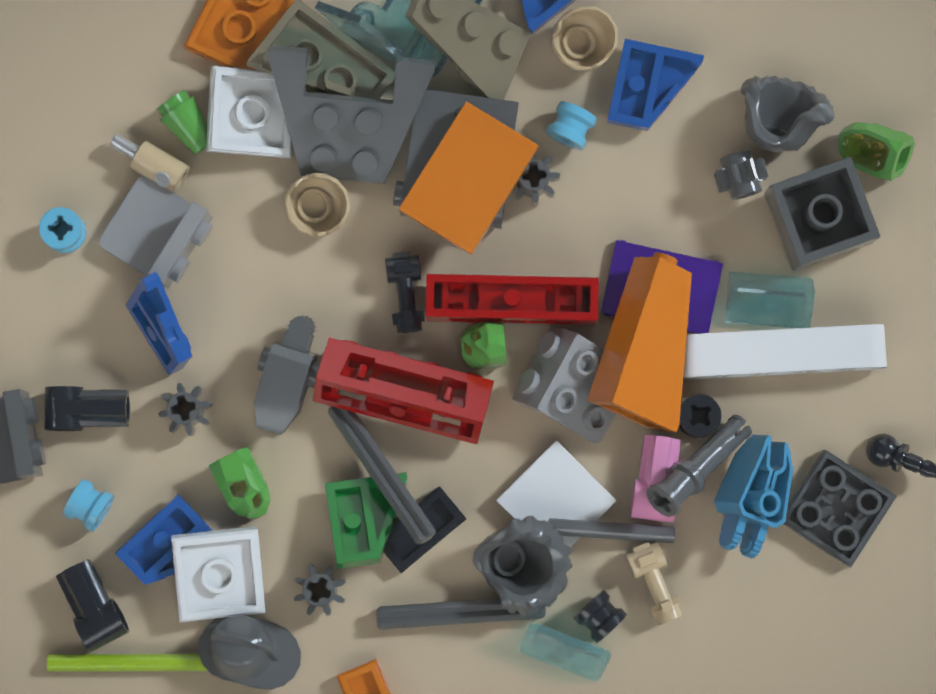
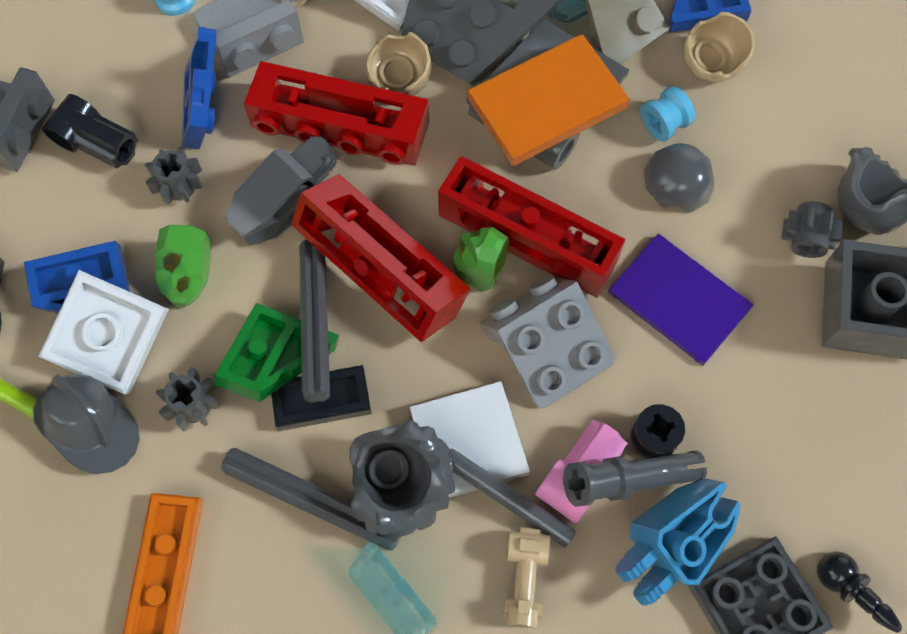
camera: 30 degrees right, 15 degrees down
(88, 505) = (33, 211): medium azure wheel -> none
(275, 300) = (338, 112): none -> red brick
(404, 270) = (440, 159): black bar -> none
(542, 171) = (609, 141): dark grey gear -> none
(600, 616) = (448, 579): black wheel -> none
(609, 179) = (680, 177): none -> dark grey hair
(647, 346) = (637, 335): orange slope -> none
(648, 82) = (760, 114): blue wing -> none
(769, 300) = (784, 363): clear light blue slope -> none
(785, 351) = (778, 414): white beam -> none

